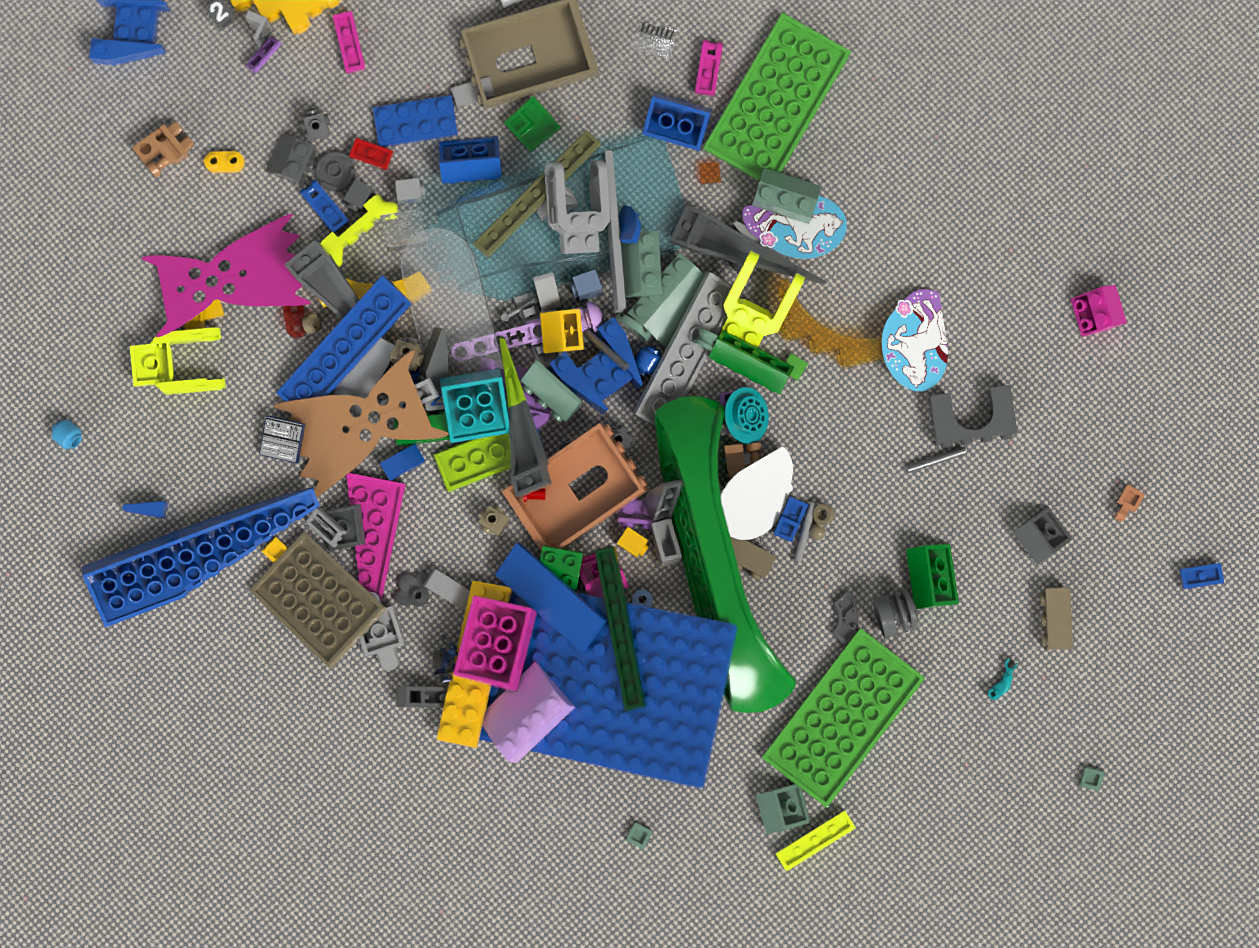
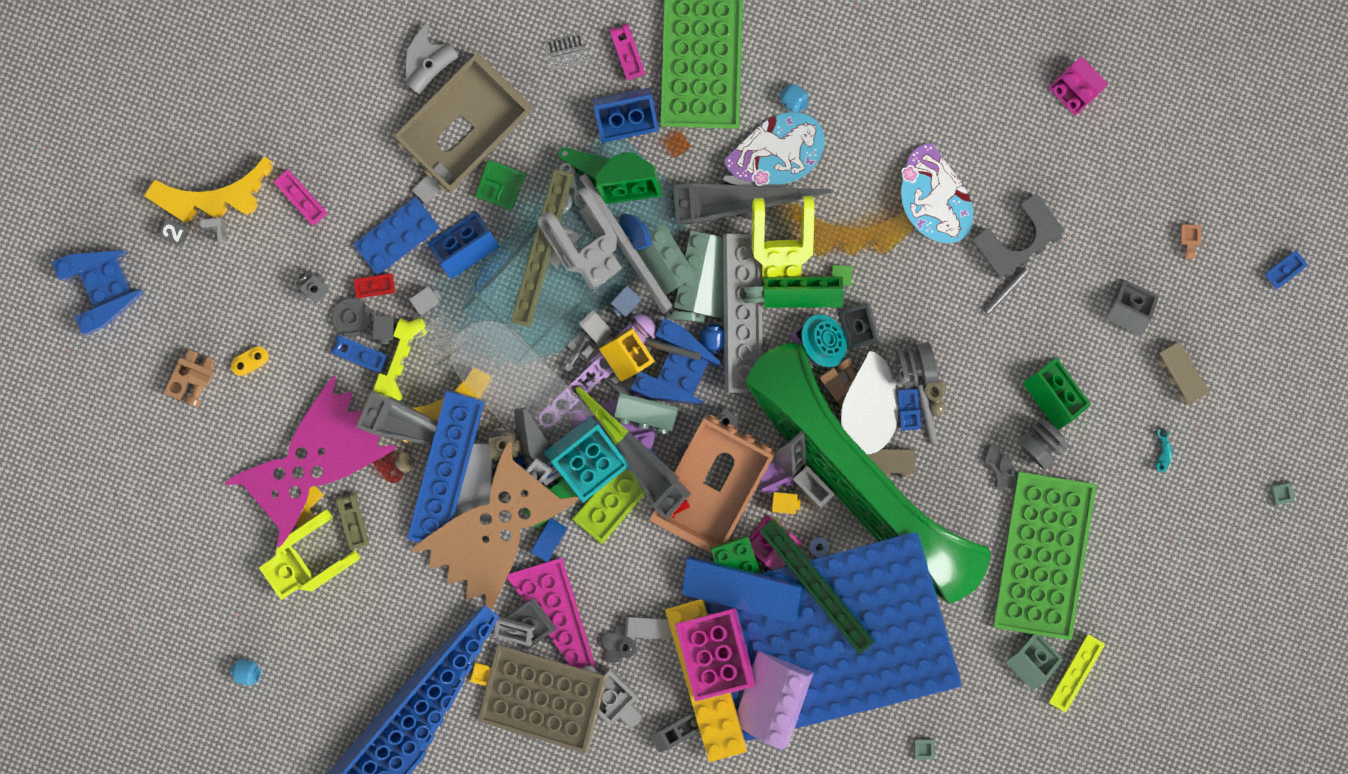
camera: 30 degrees left, 5 degrees up
(154, 509) = (356, 696): blue slope -> none
(236, 351) = (352, 521): none -> olive plate
(263, 54) = (232, 249): medium lavender slope -> none
(282, 439) = (434, 576): light grey tile -> none
(292, 159) = (307, 328): dark grey slope -> none
(445, 659) = (678, 692): animal -> none
(496, 527) = (662, 545): dark tan brick -> none
(638, 170) = (618, 179): none -> green slope
(785, 420) = (859, 326): none -> dark grey slope
(786, 195) = (756, 130): sand green slope -> none
(818, 481) = (917, 365): none -> dark grey wheel
(836, 186) = (794, 98): none -> dark azure head

